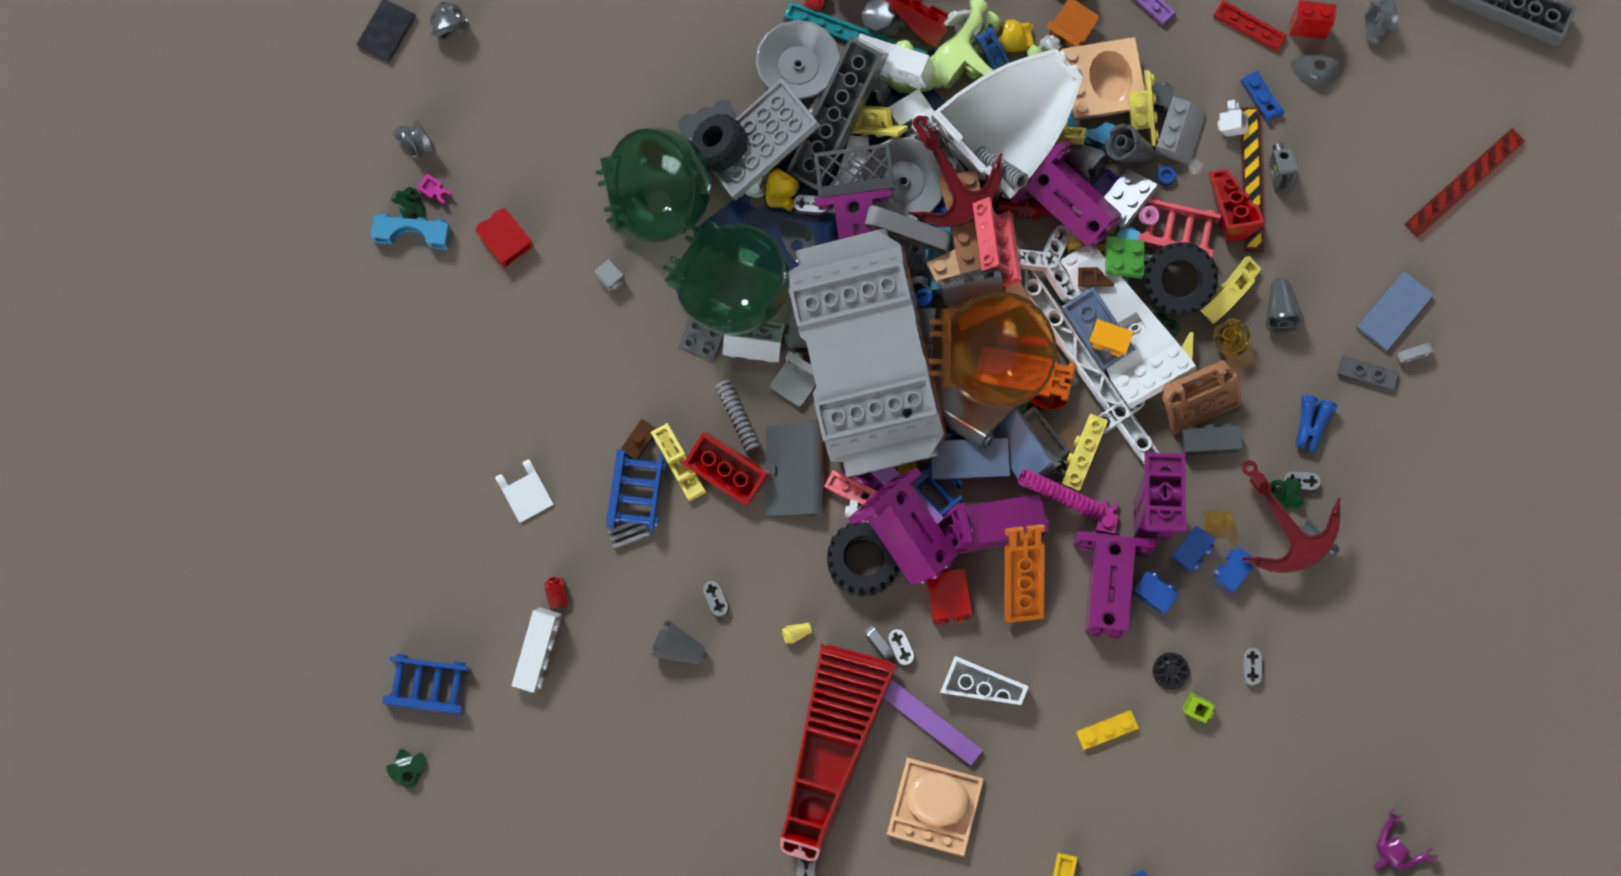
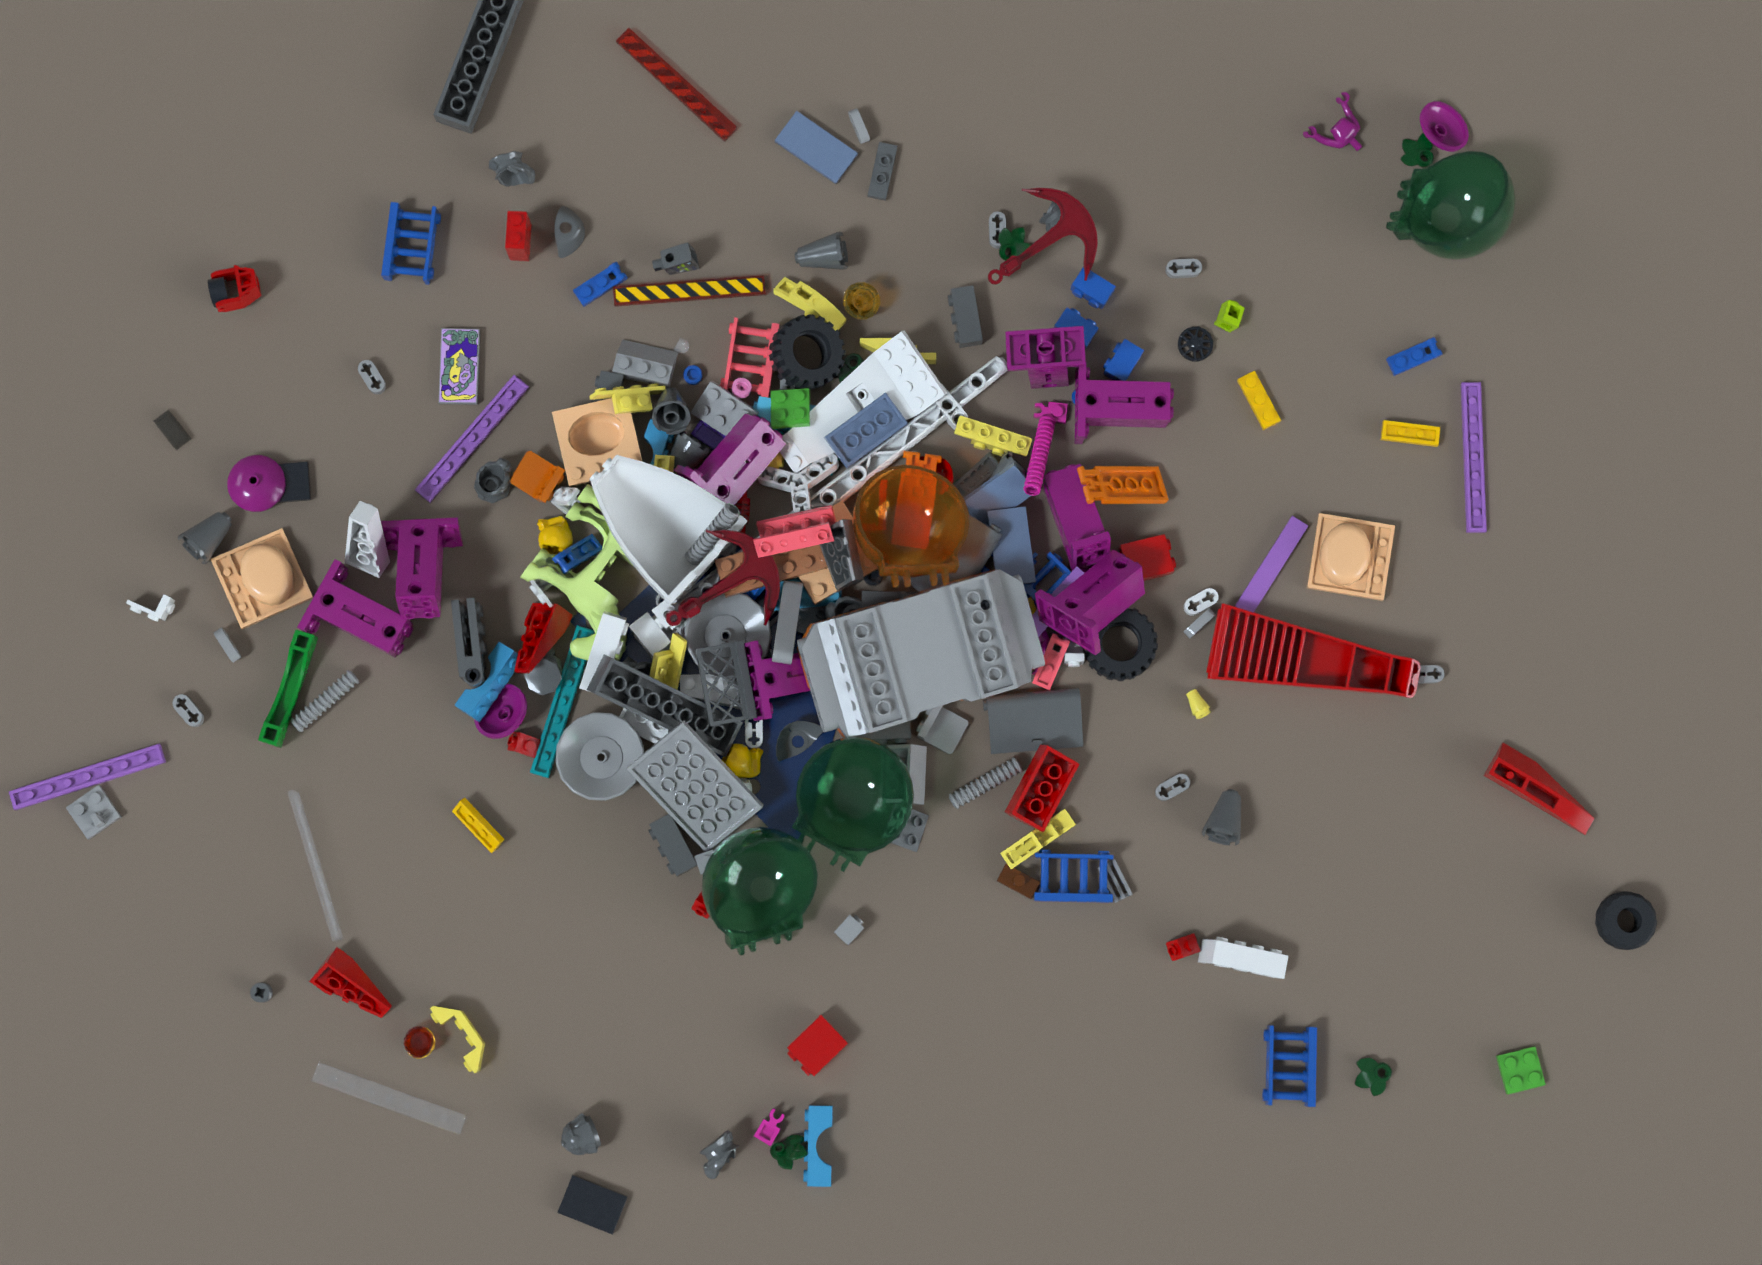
camera: 105 degrees left, 5 degrees up
(526, 495) = (1086, 989): white flag -> none
(720, 141) = (703, 811): black tyre -> none
(924, 298) = (850, 603): blue tile -> none
(977, 682) = (1229, 523): white wedge -> none
(1092, 277) = (815, 438): reddish brown tile -> none
(1111, 338) = (878, 415): light orange brick -> none
(1201, 396) = (926, 326): nougat plate -> none
(1217, 521) = (1045, 306): clear yellow bracket -> none
(1233, 122) = (632, 310): white brick -> none
(1237, 211) = (720, 307): red wedge -> none
(1250, 26) = (523, 300): red tile -> none
(1324, 413) = (950, 223): blue piece -> none

